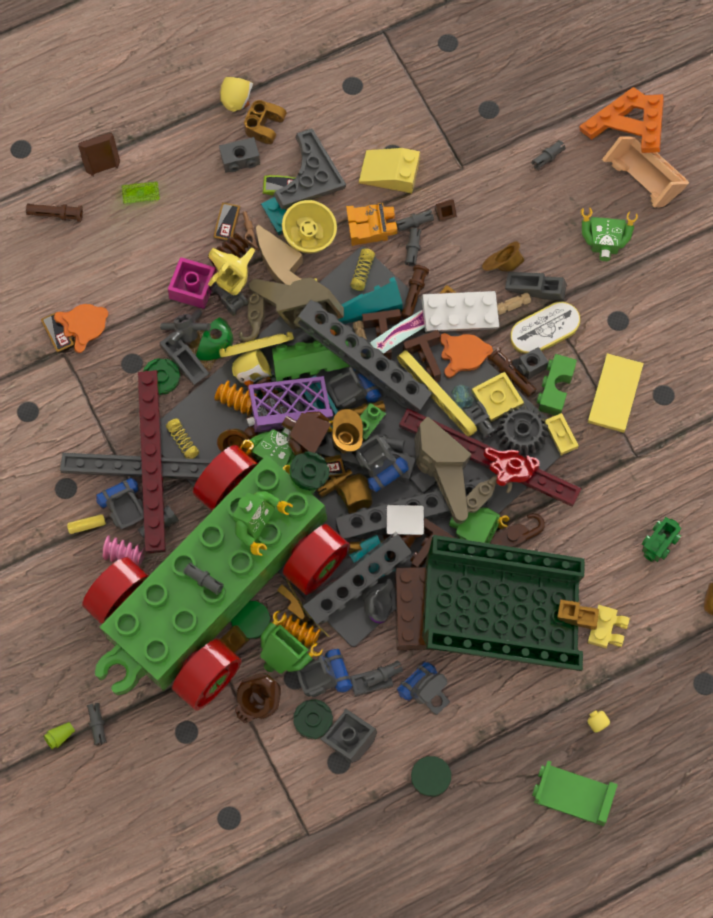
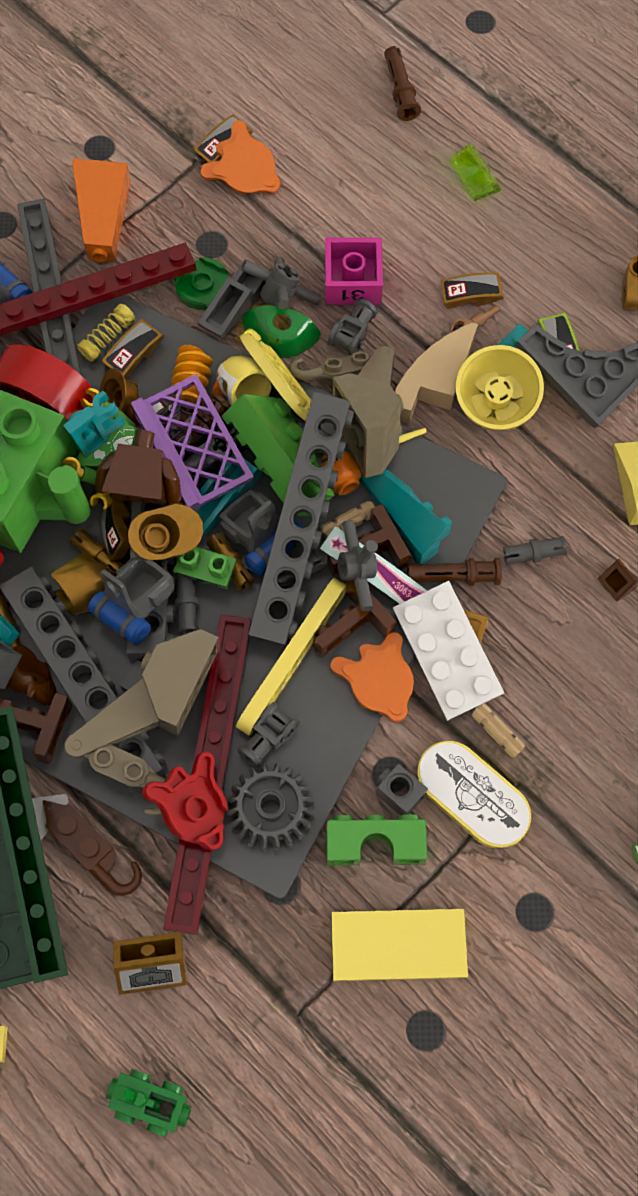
camera: 70 degrees right, 0 degrees up
(80, 419) = (102, 201): none -> orange slope
(99, 154) = (506, 100): reddish brown slope -> none
(199, 426) = (131, 348): none -> slope
(231, 269) = (386, 304): light yellow piece -> none
(233, 246) = (419, 304): reddish brown piece -> none
(246, 148) = (582, 257): dark grey brick -> none
(271, 447) = (91, 426): none -> teal plate
(309, 471) = (47, 478): dark green tile -> none
(356, 283) = (490, 482): light yellow piece -> none
(369, 223) = (547, 477): light orange hips -> none
(400, 336) = (358, 564): none -> dark grey bar
(405, 519) = (51, 666): white sticker -> none
(414, 220) = (581, 539): dark grey pin -> none
(461, 396) = (300, 694): clear light blue brick -> none
(480, 525) = (73, 788): bright green torso -> none
(497, 396) = (319, 750): light yellow plate -> none
(505, 259) = (567, 693): pearl gold piece -> none
(506, 365) = (377, 747): reddish brown pin -> none
(536, 285) = (542, 758): dark grey slope -> none
(561, 434) = (286, 872): light yellow plate -> none
(589, 517) = (149, 963): none -> pearl gold brick

